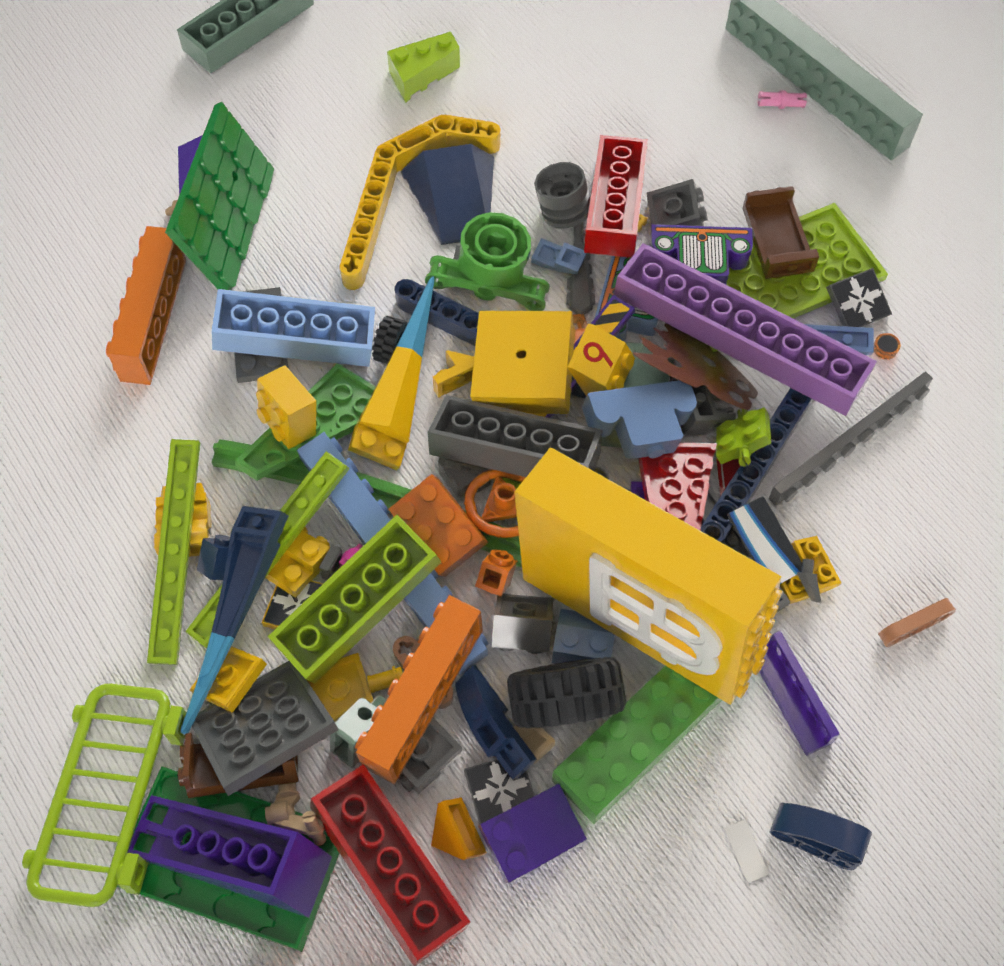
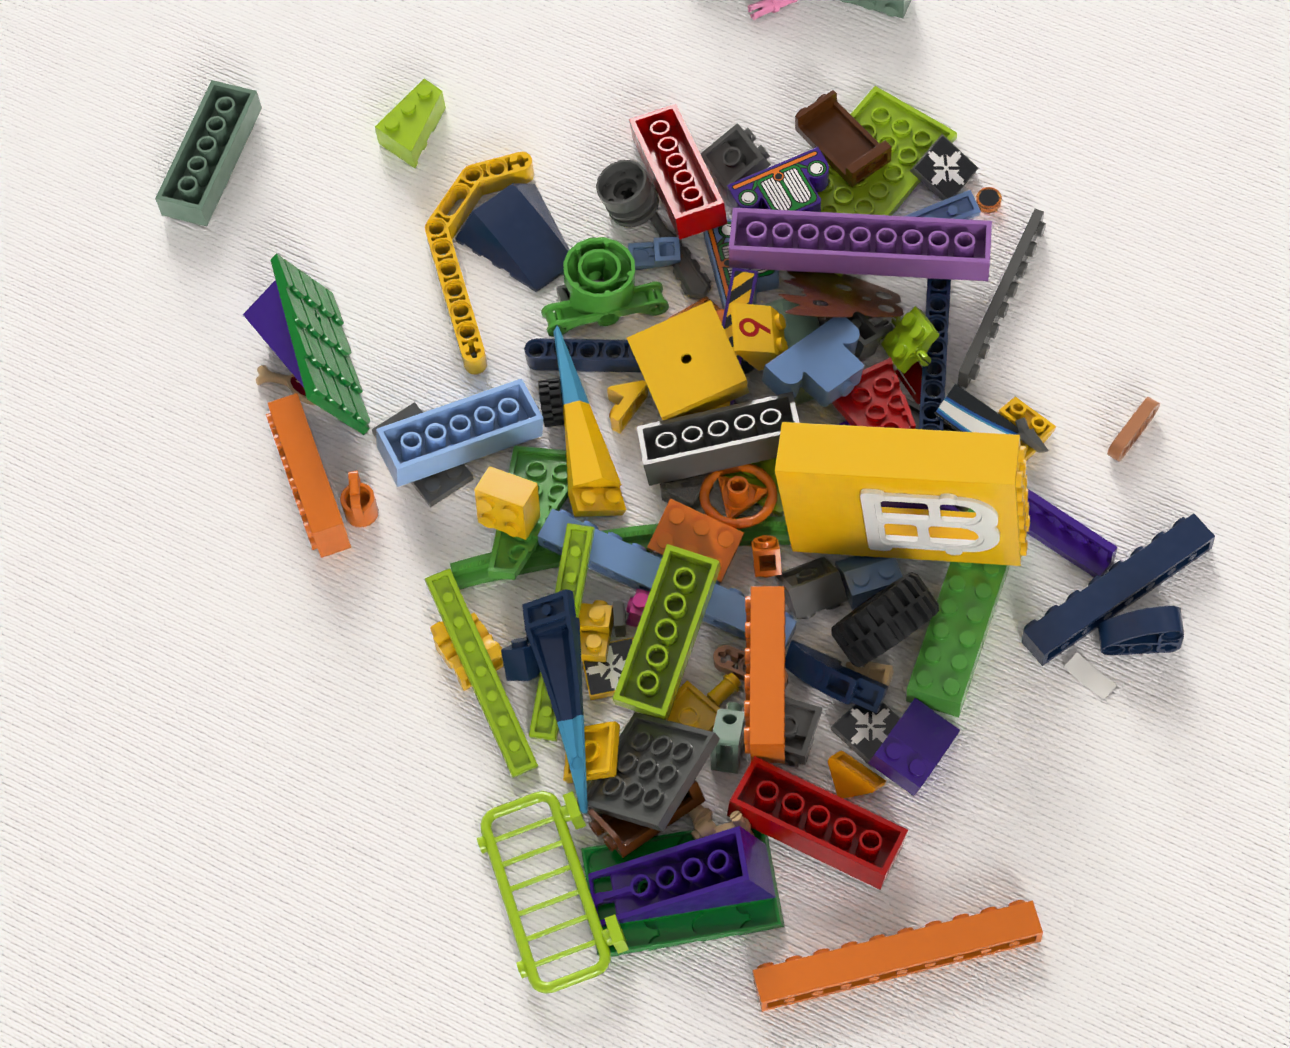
camera: 20 degrees left, 0 degrees up
(175, 347) = (358, 502): none -> orange piece
(820, 775) = (1117, 589): none -> dark blue brick

